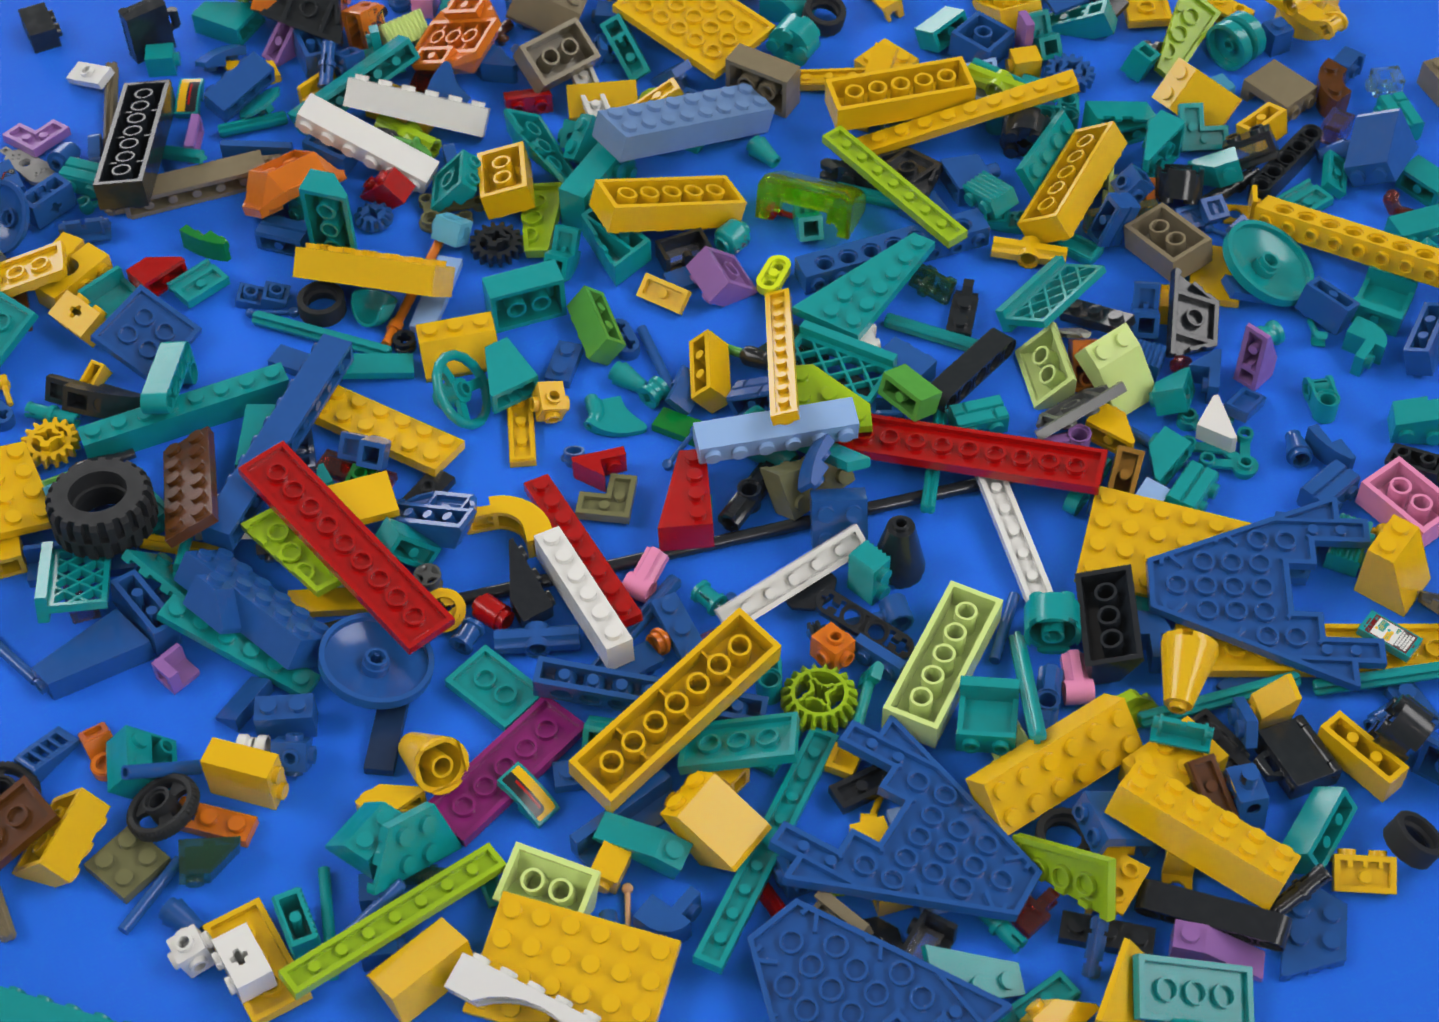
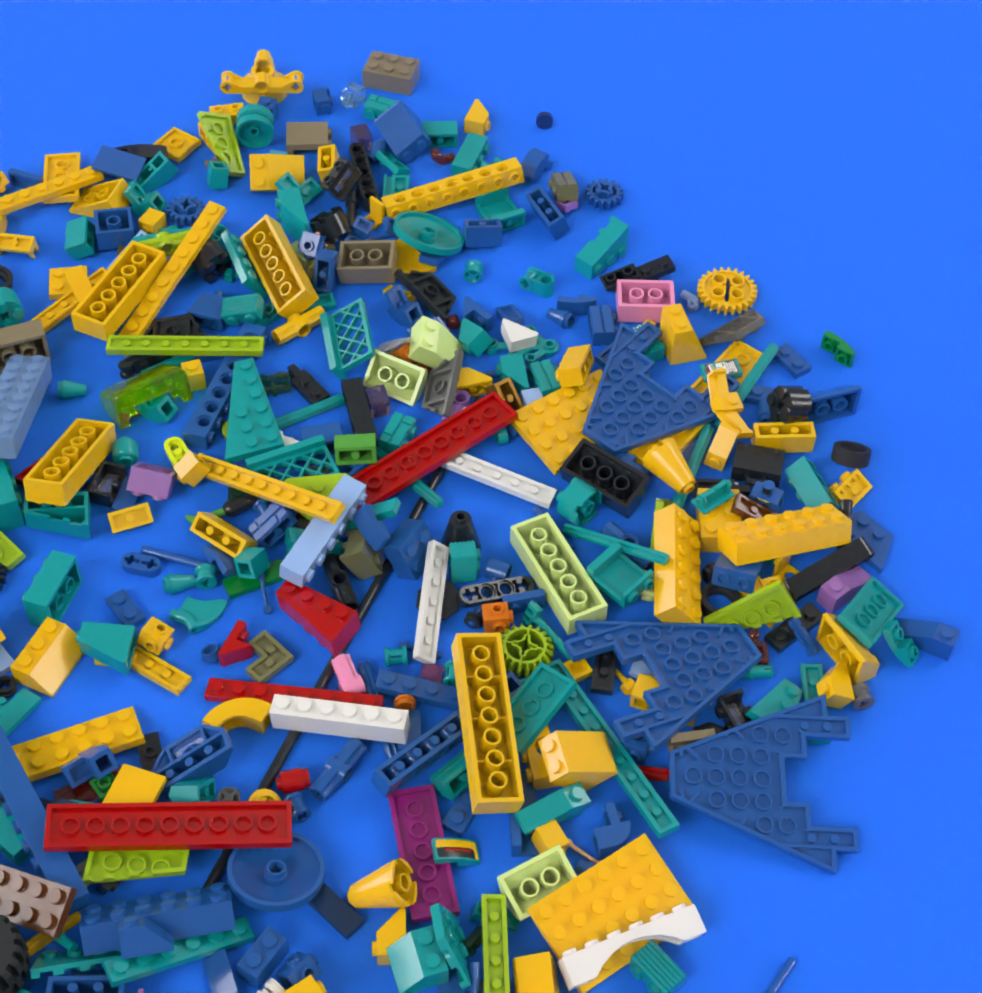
camera: 55 degrees left, 0 degrees up
(333, 603) = (198, 863): yellow tile -> none
(459, 391) = (92, 682): teal piece -> none
(493, 687) = (354, 818): teal plate -> none
(527, 596) = (296, 748): black slope -> none
(565, 249) = (34, 544): teal brick -> none
(596, 326) = (119, 570): bright green brick -> none
(696, 408) = (251, 562): none -> teal brick
(758, 293) = (191, 469): none -> yellow brick
(874, 218) = (195, 374): none -> yellow brick
(1003, 374) = (378, 401): none -> clear purple brick
(1024, 30) = (136, 202): medium lavender tile -> none
(1076, 685) = (628, 523): bright pink piece -> none
(1096, 316) = (389, 328): black plate -> none
(1127, 115) = (250, 213): teal wedge -> none
(1220, 168) = (340, 196): teal slope -> none
(1232, 499) = (575, 366): none -> yellow brick
(1244, 722) = (721, 468): blue plate -> none
(1255, 359) = (490, 286): medium lavender slope -> none
(1318, 337) = (494, 254): teal hand -> none
(1331, 88) = (336, 118): reddish brown brick -> none
(1336, 667) = (726, 404): none -> yellow plate
(1366, 342) = (521, 237): teal brick -> none

